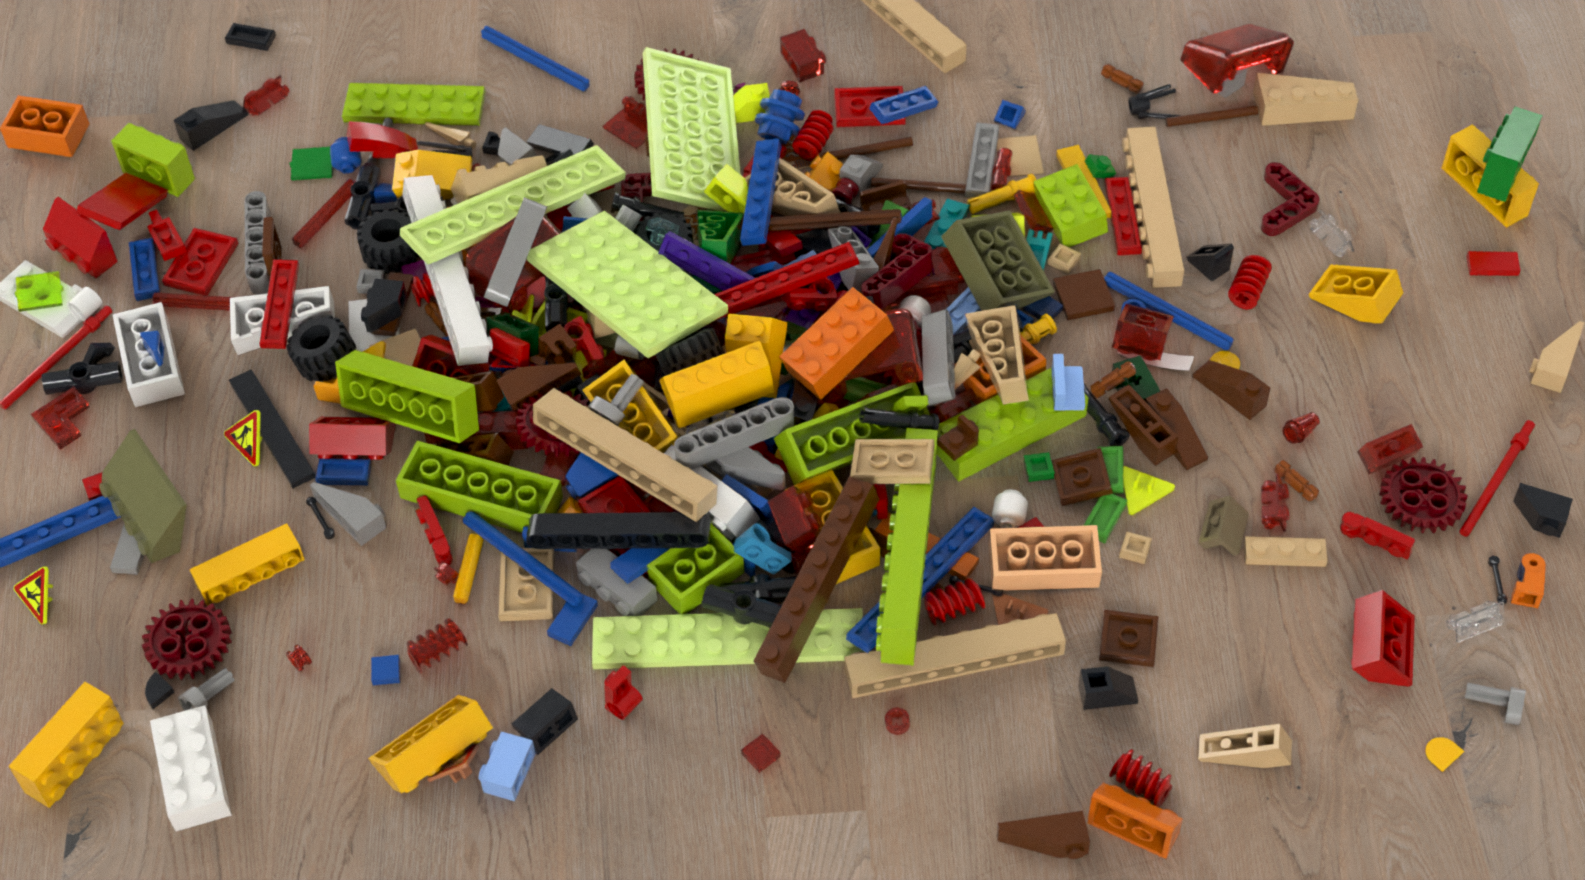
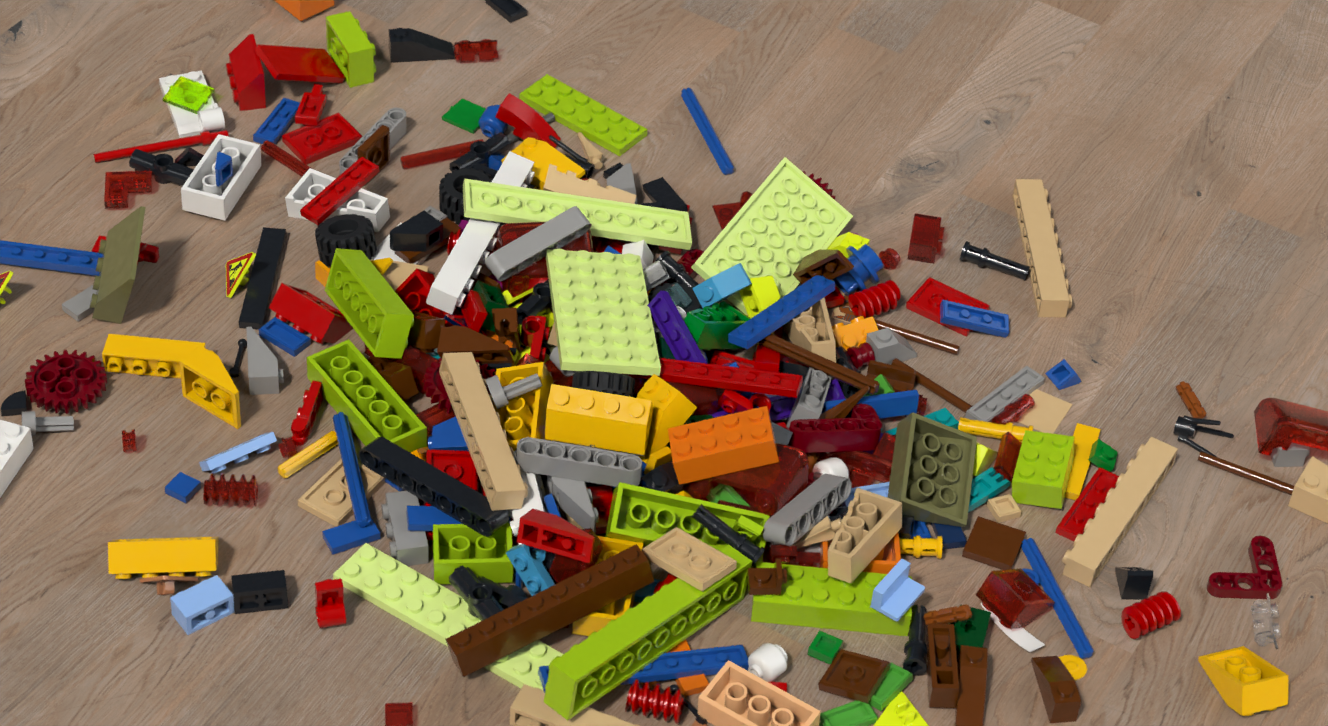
camera: 30 degrees right, 10 degrees down
(332, 560) = (210, 385): none -> yellow slope
(406, 606) = (238, 453): none -> light blue plate
(695, 198) = (722, 286): none -> dark azure slope
(755, 127) = (822, 263): none -> reddish brown slope
(776, 510) = (555, 535): none -> red slope
(783, 385) = (658, 458): none -> yellow tile
(863, 45) = (985, 258): none -> black pin

